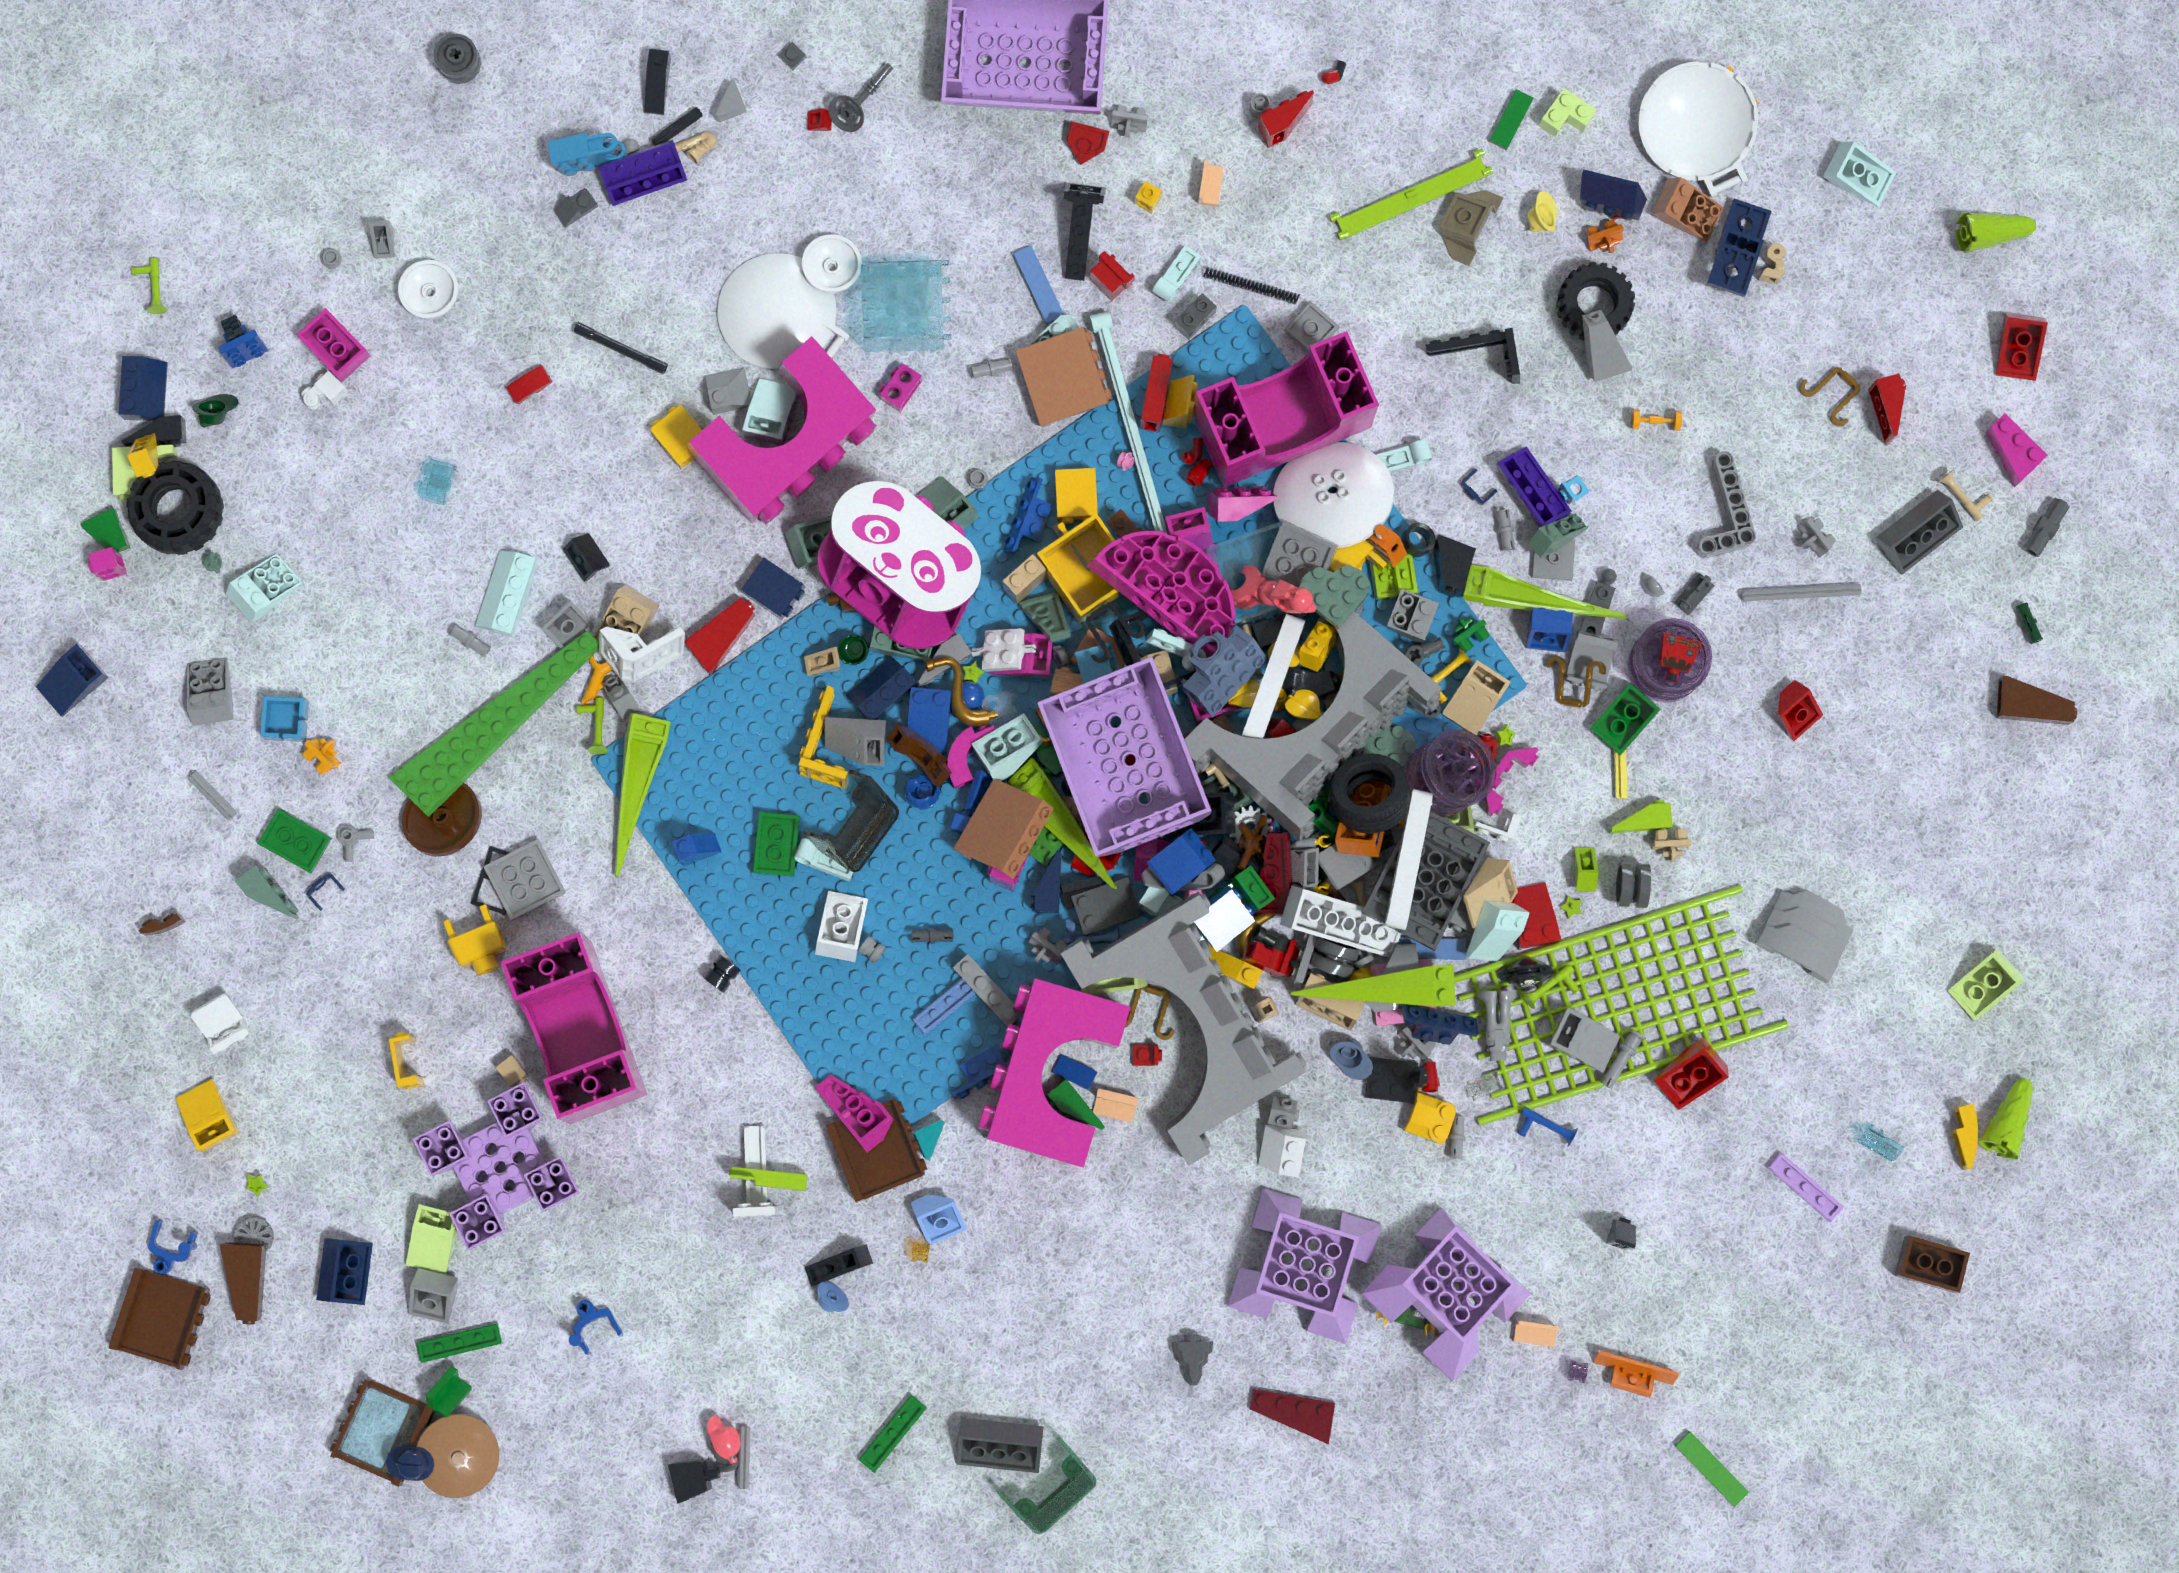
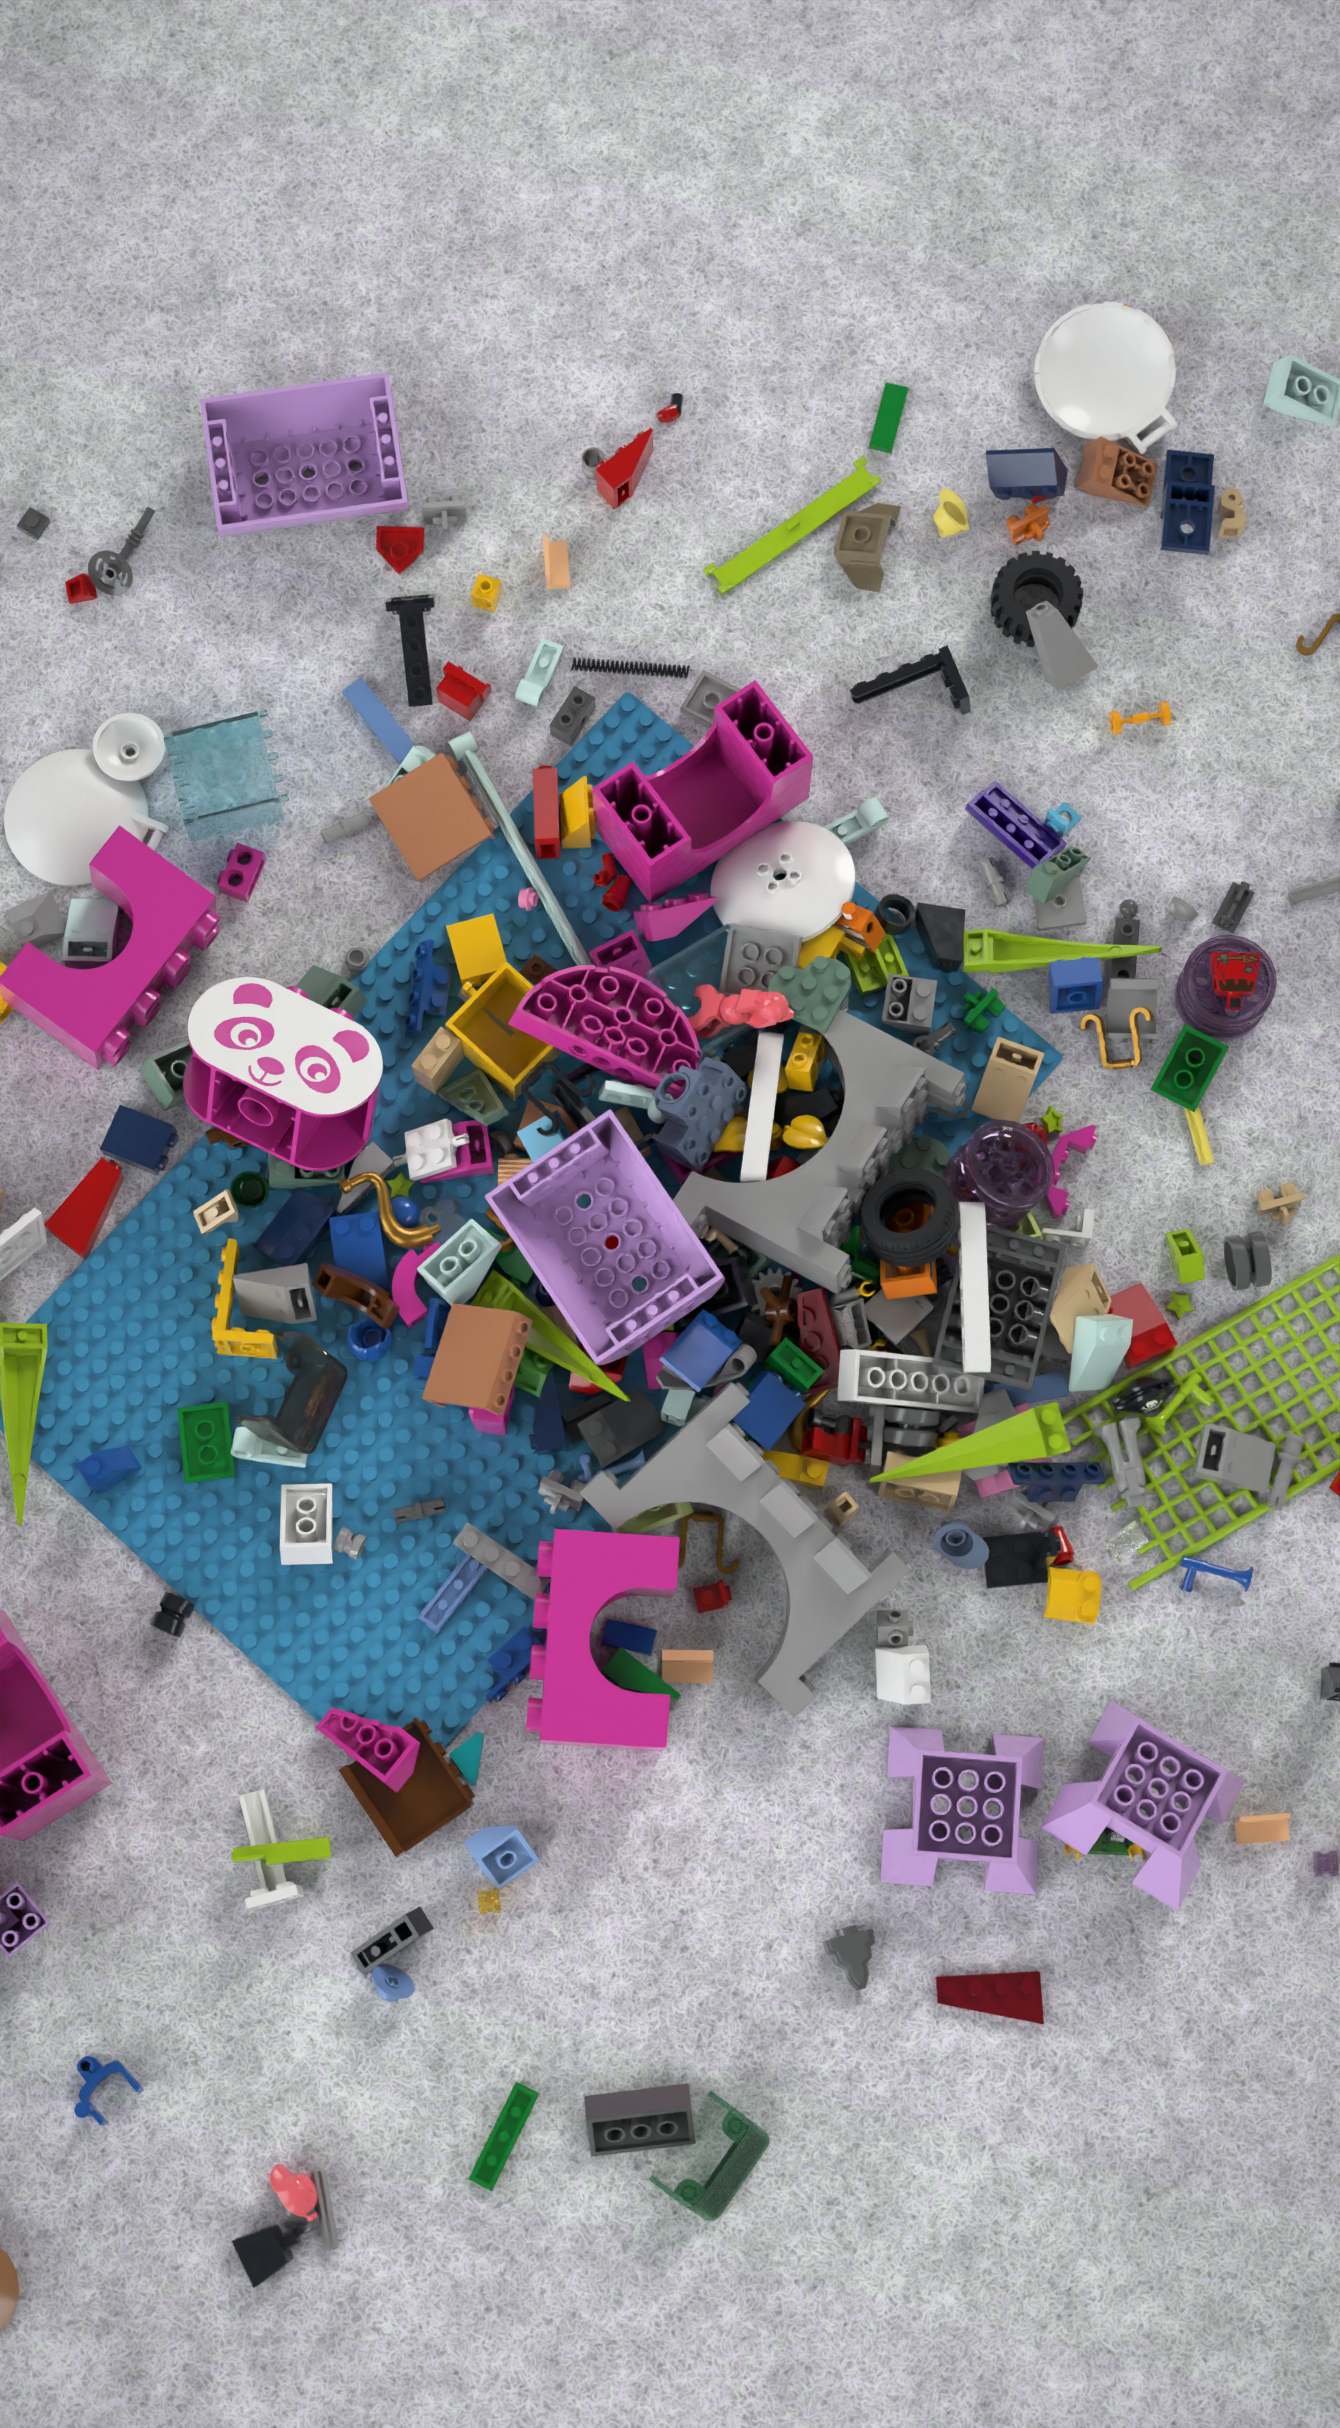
camera: 10 degrees left, 5 degrees down
(1457, 1138) = (1110, 1612): light grey pin -> none
(1459, 660) = (978, 1041): yellow piece -> none
(1471, 493) = (943, 848): dark blue piece -> none
(1567, 109) = (952, 391): yellowish green brick -> none
(1652, 817) = (1246, 1179): lime slope -> none
(1731, 509) = (1253, 801): light grey beam -> none

